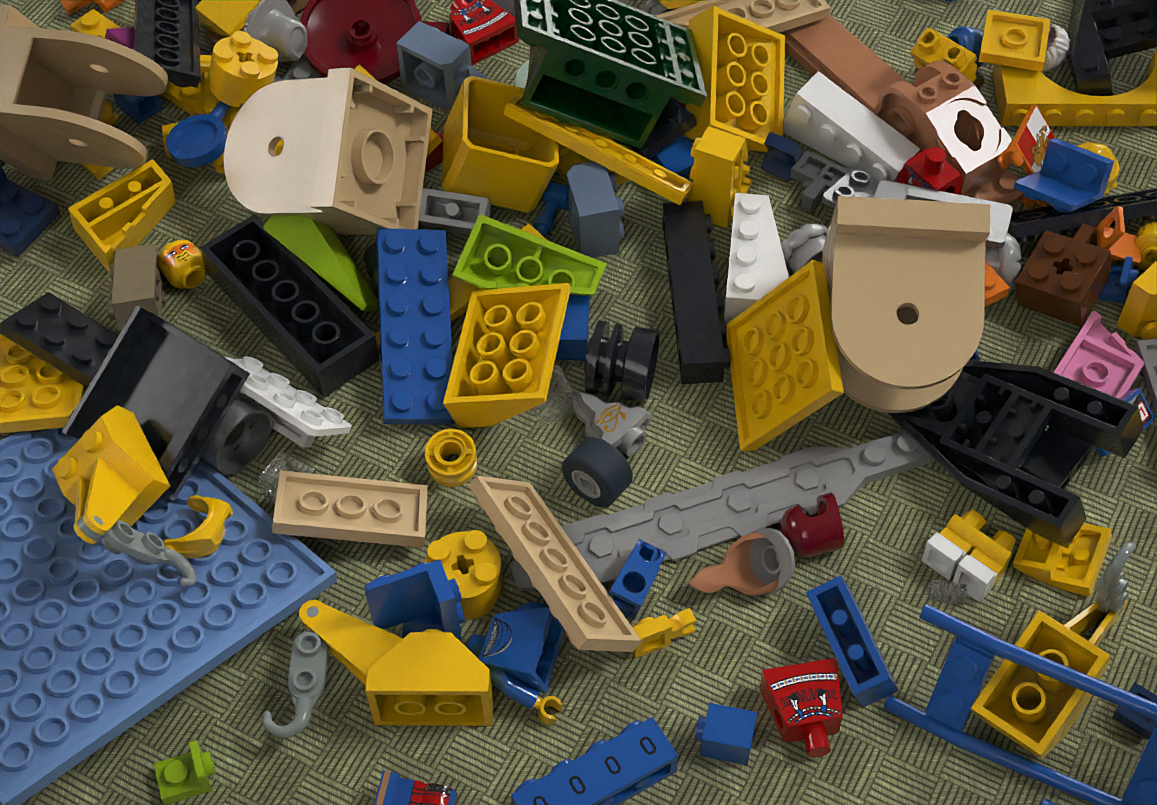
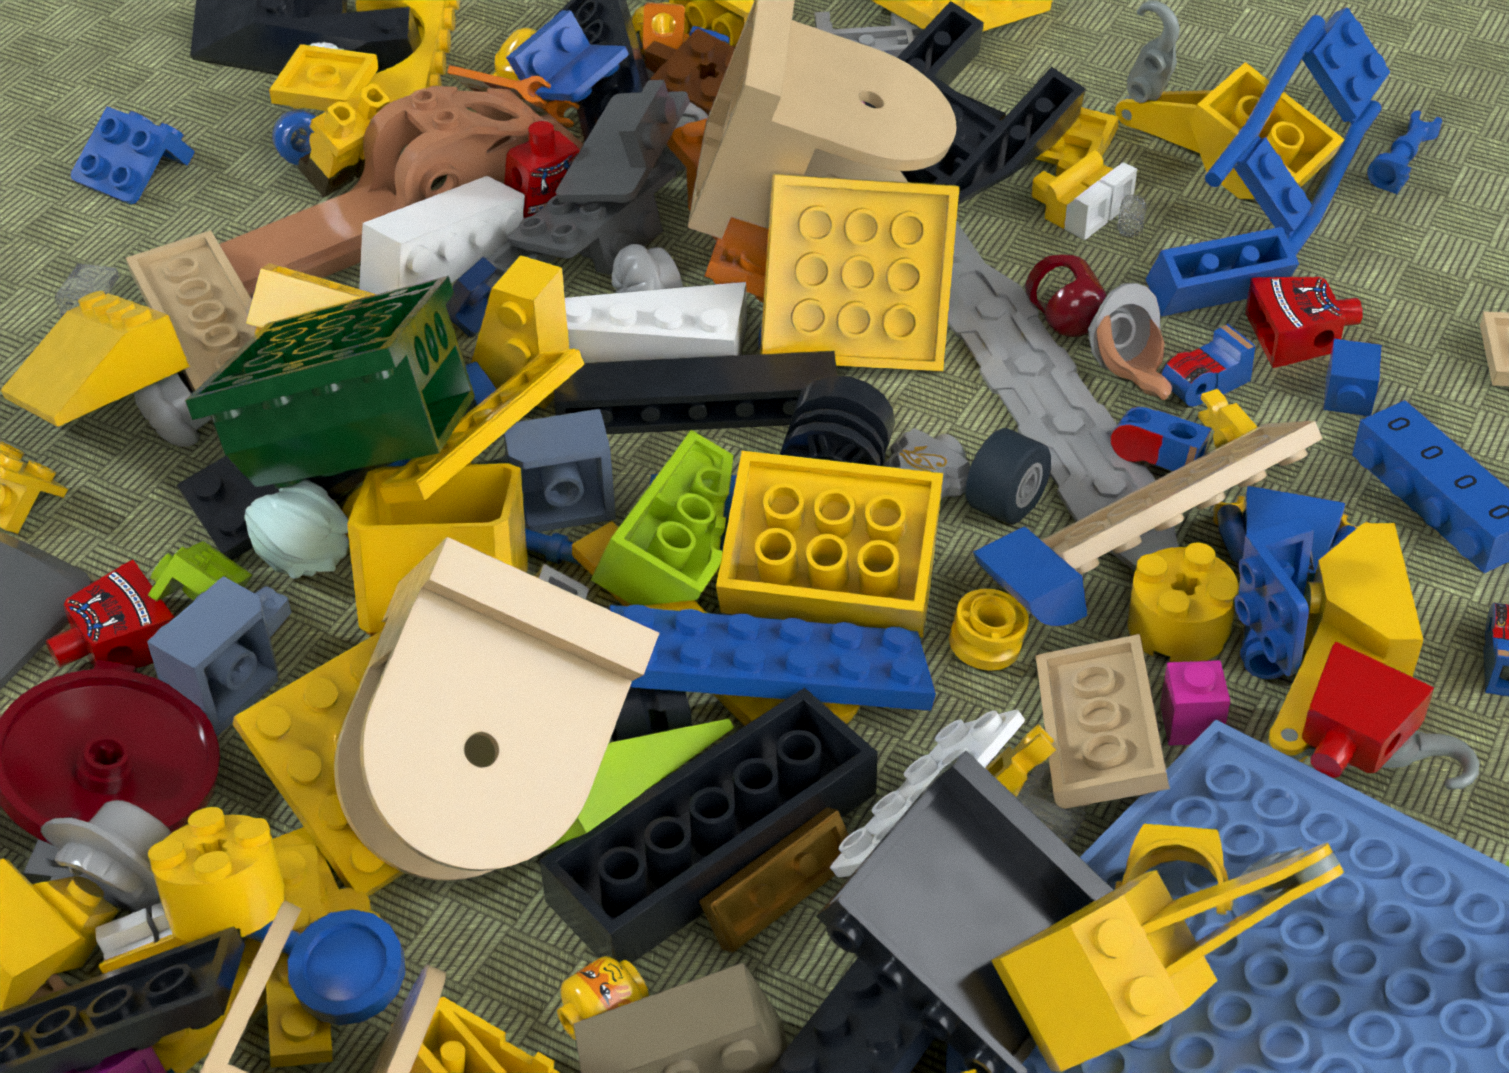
camera: 90 degrees left, 10 degrees down
(252, 338) = (775, 881): none -> pearl gold tile
(308, 642) = (1362, 712): none -> red torso
(312, 454) = (1013, 764): none -> yellow plate
(365, 566) = (1193, 699): none -> dark pink brick
(460, 466) = (1035, 577): none -> blue brick
(499, 49) = (194, 571): none -> lime bracket
(737, 627) = (1217, 365): none -> blue leg

